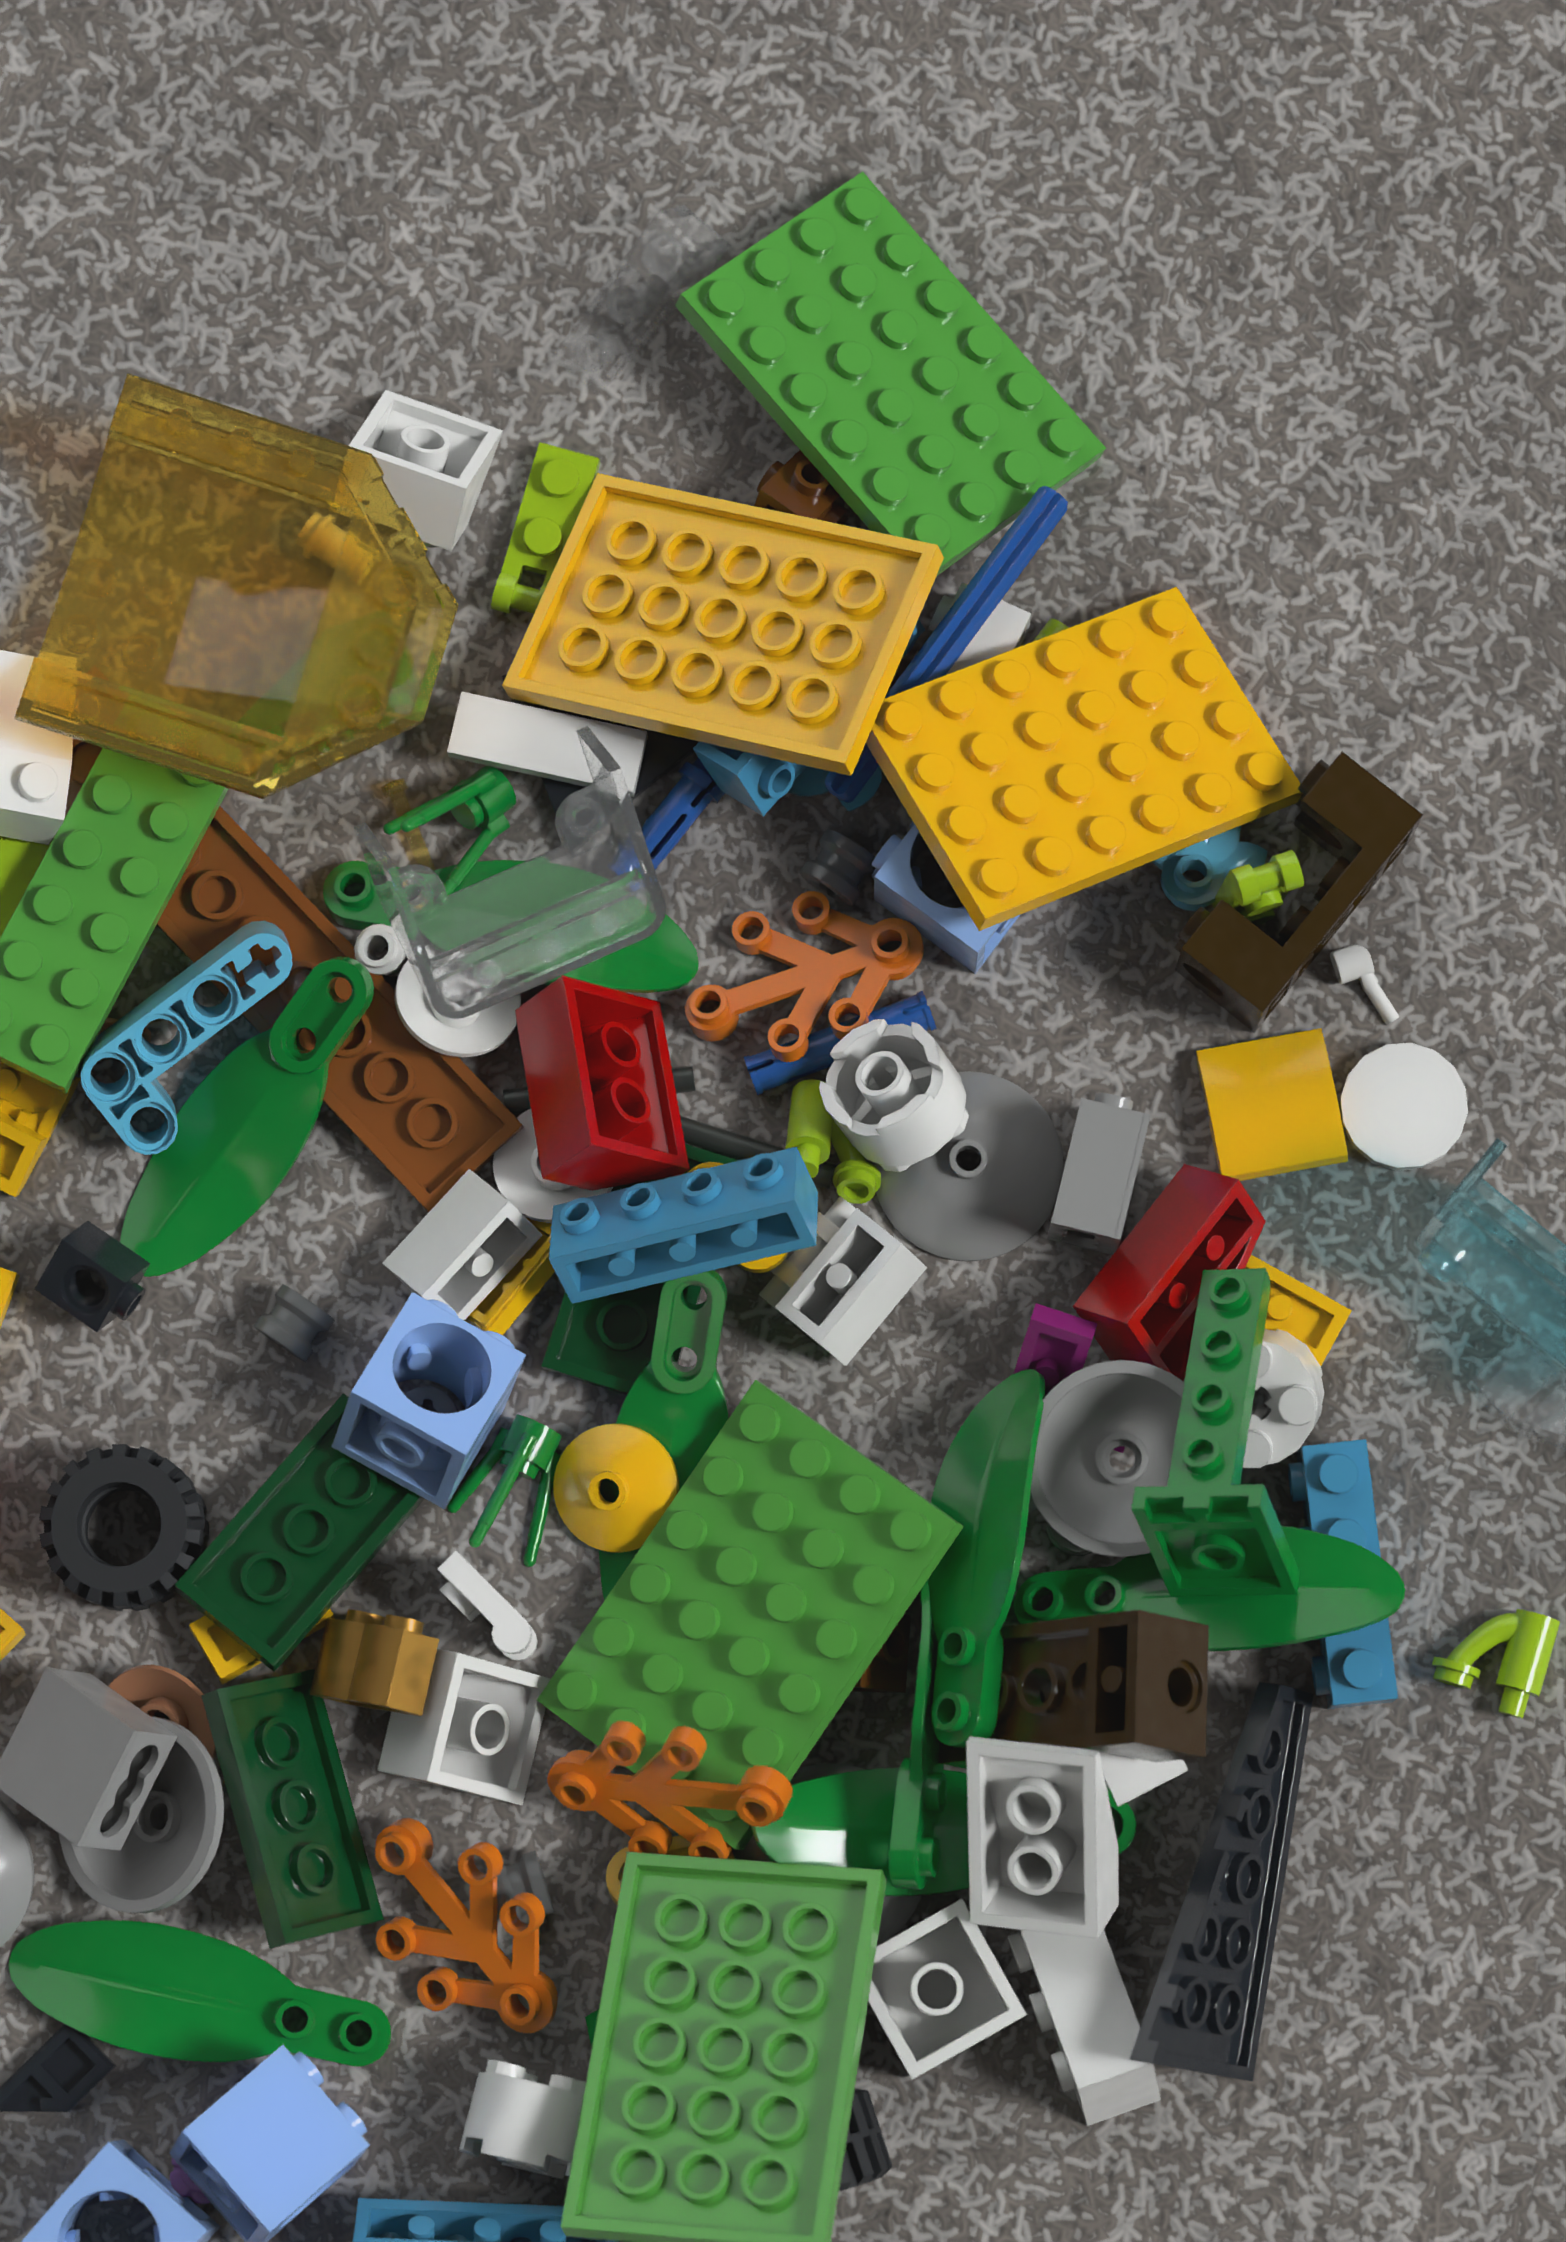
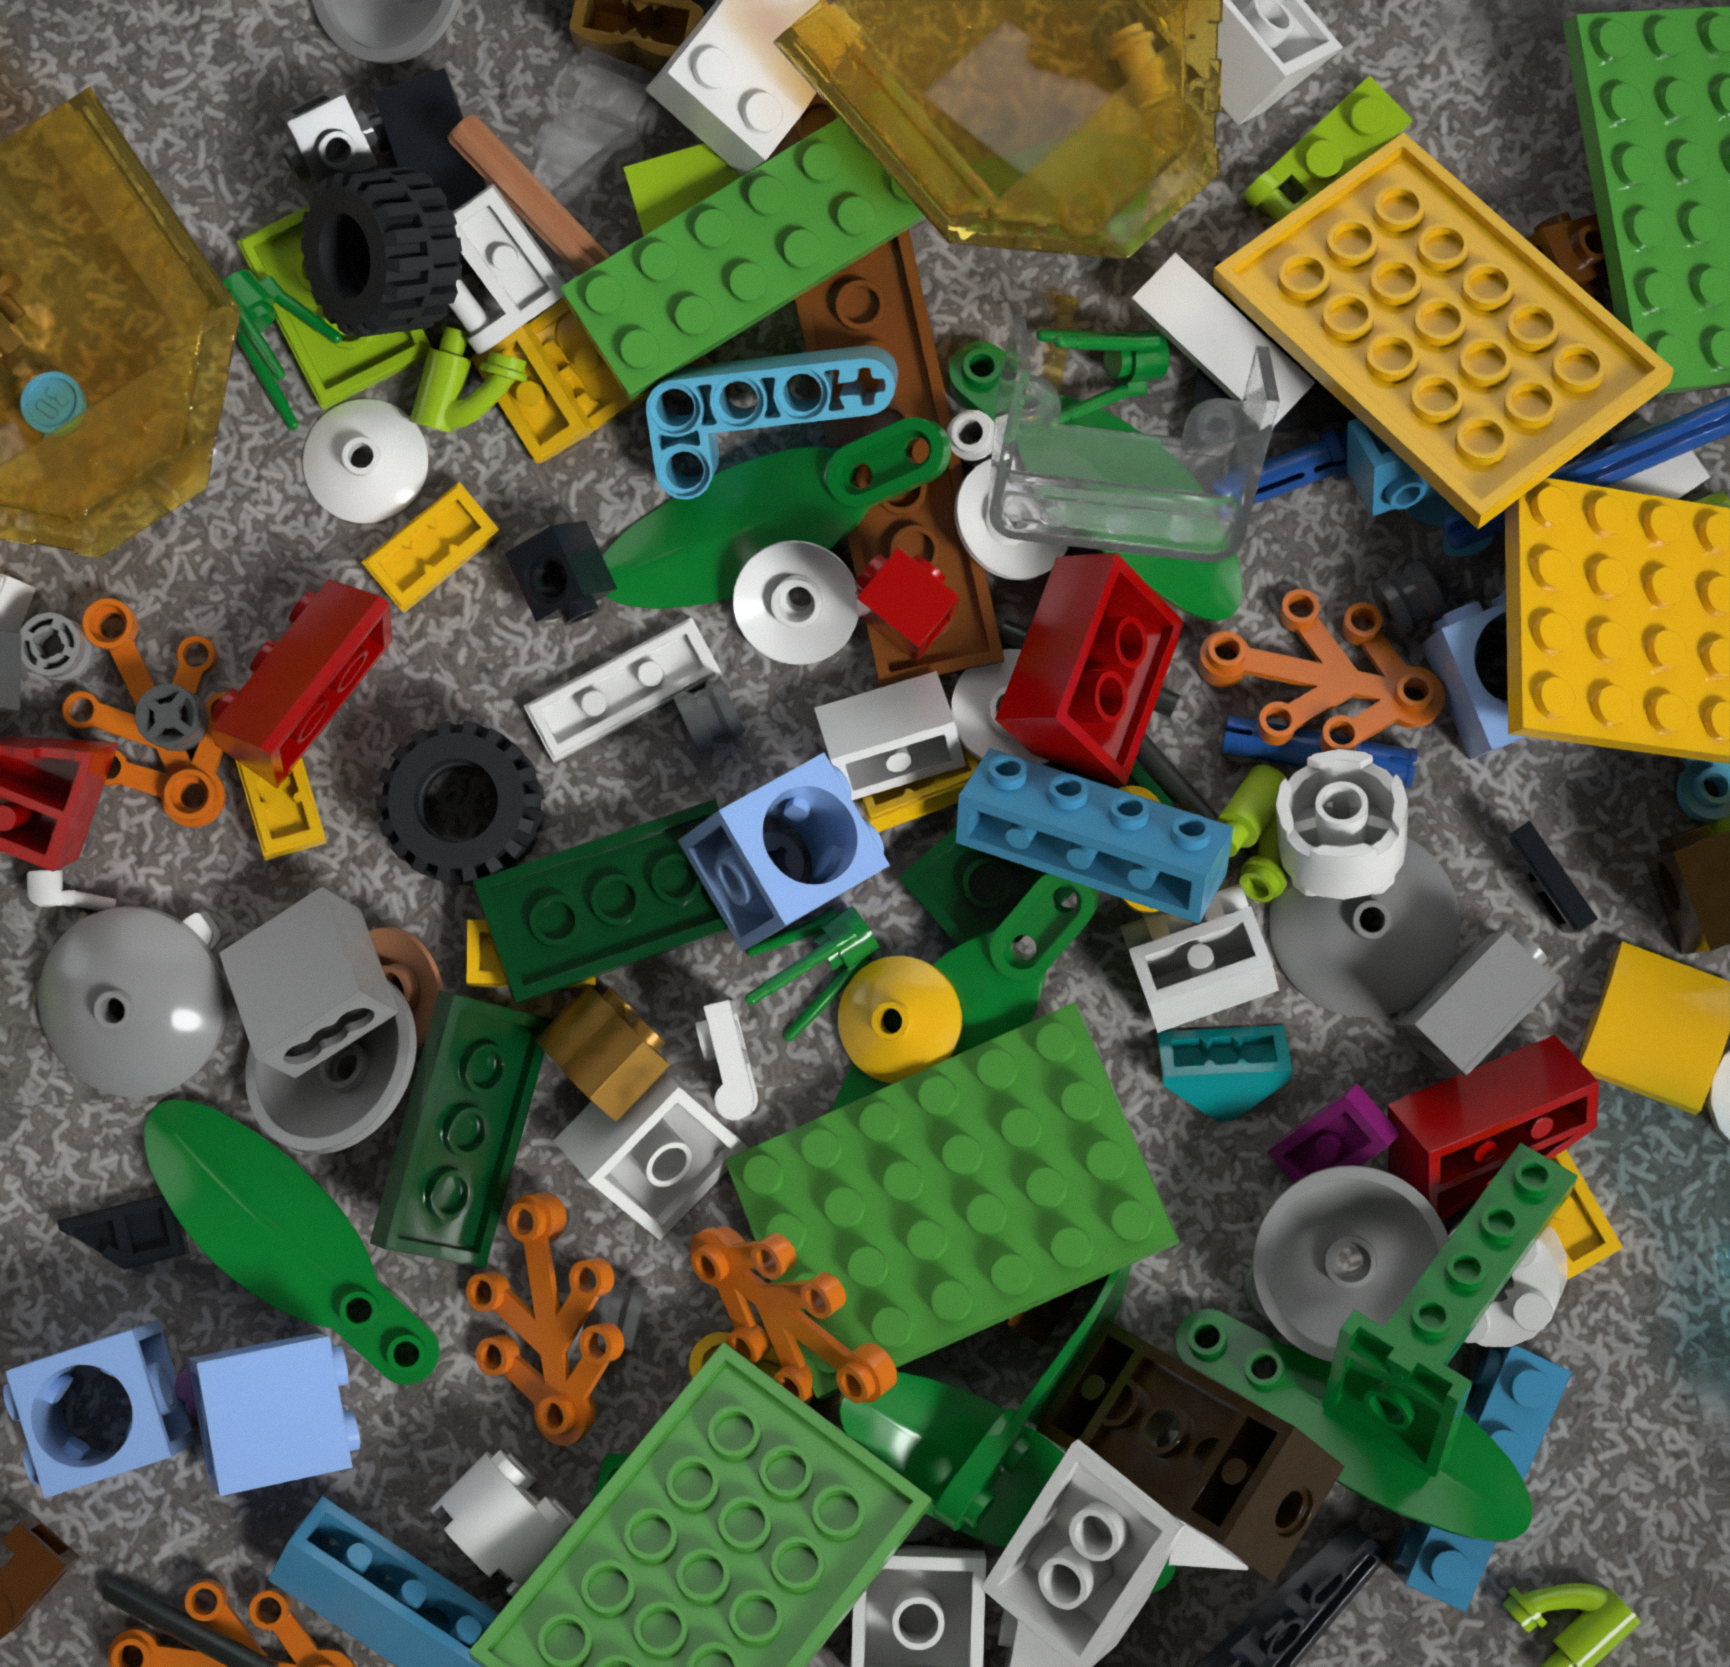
camera: 30 degrees right, 5 degrees up
(205, 1348) = (622, 690): none -> white tile
(313, 1212) = (778, 625): none -> white dish
(407, 1124) = (905, 601): none -> red brick
(921, 1363) = (1224, 1068): none -> teal slope
(988, 1492) = (1222, 1221): green plant -> none
(1102, 1035) = (1551, 881): none -> black tile

